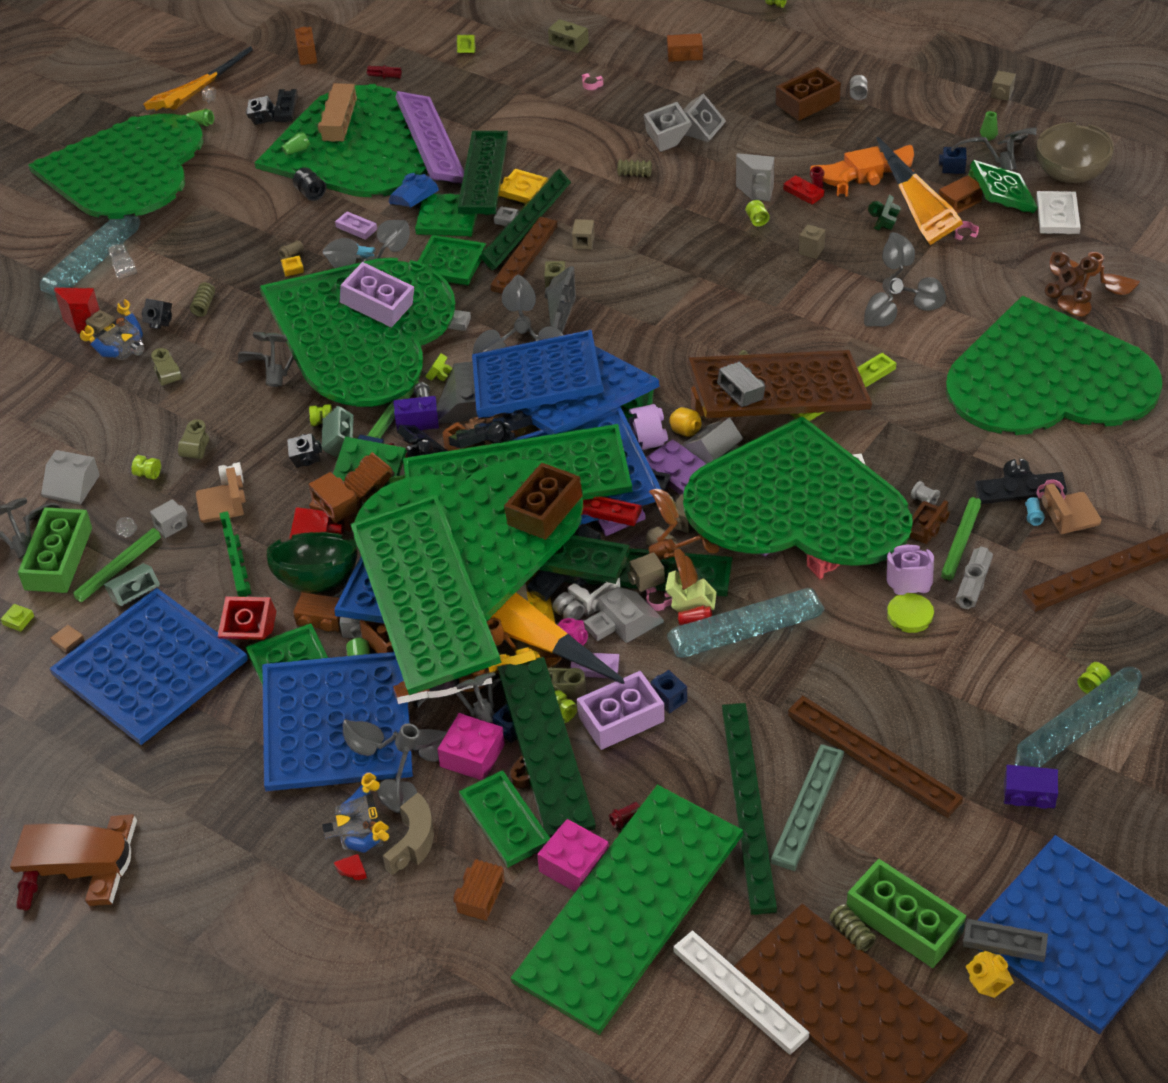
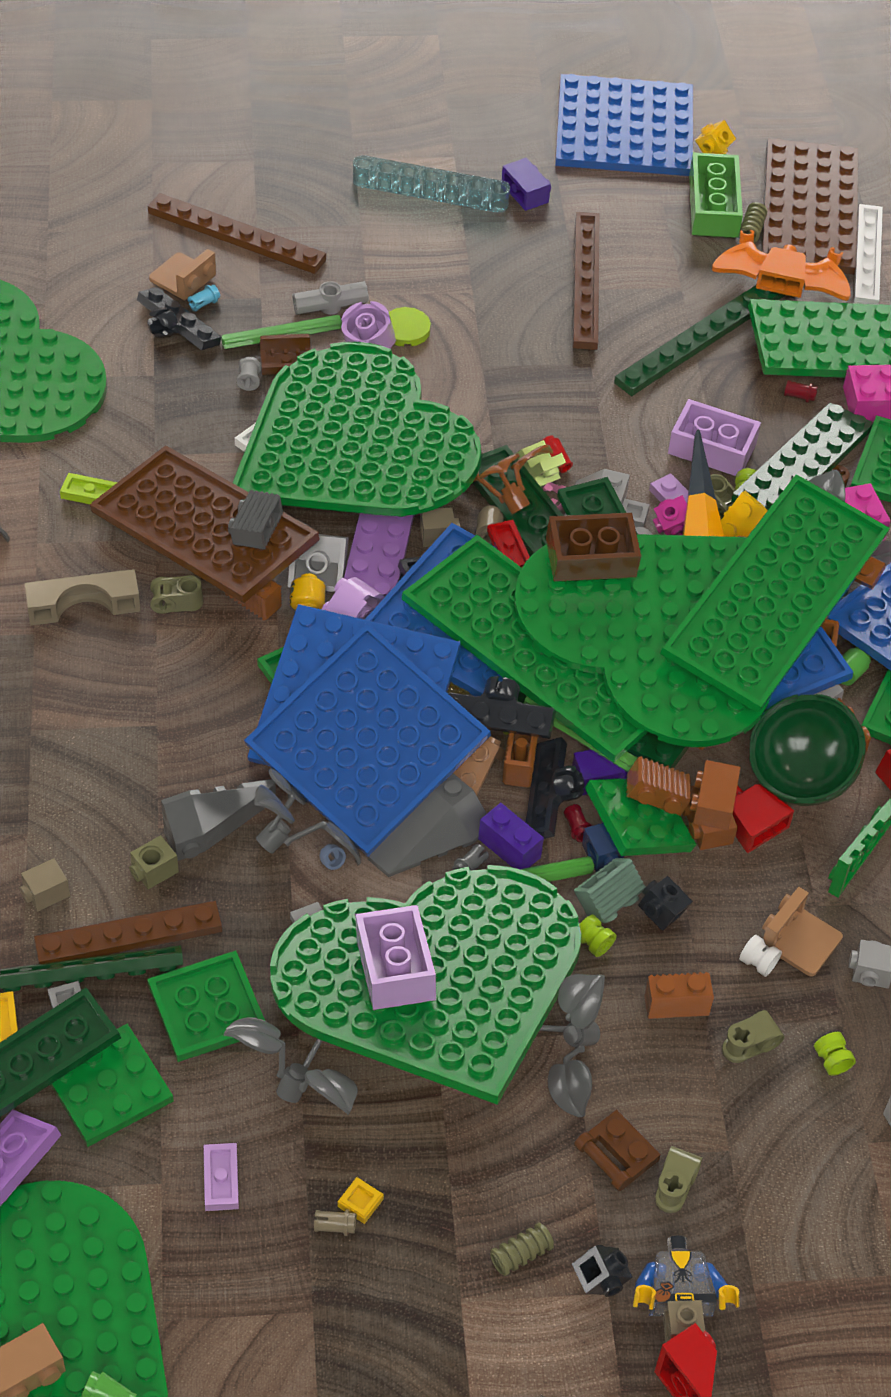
camera: 135 degrees left, 5 degrees up
(206, 365) = (624, 1144): none -> reddish brown plate
(248, 424) = (678, 995): none -> dark orange brick
(309, 184) = (182, 1303): black wheel -> none
(362, 251) = (273, 1131): medium azure pin -> none
(413, 190) = (100, 1148): blue slope -> none
(438, 368) = (416, 873): lime tile -> none
(646, 572) = (544, 496): dark tan brick -> none
(670, 690) = (656, 426): dark blue brick -> none
(745, 622) = (528, 417): clear light blue beam -> none
(759, 882) = (784, 269): none -> orange torso
(790, 313) = (52, 597): none -> dark tan arch
(807, 807) = (670, 298): sand green tile -> none
(1005, 940) = (683, 134): dark grey plate -> none
(1057, 483) = (171, 292): bright pink piece -> none
(1093, 677) = (378, 190): lime wheel -> none

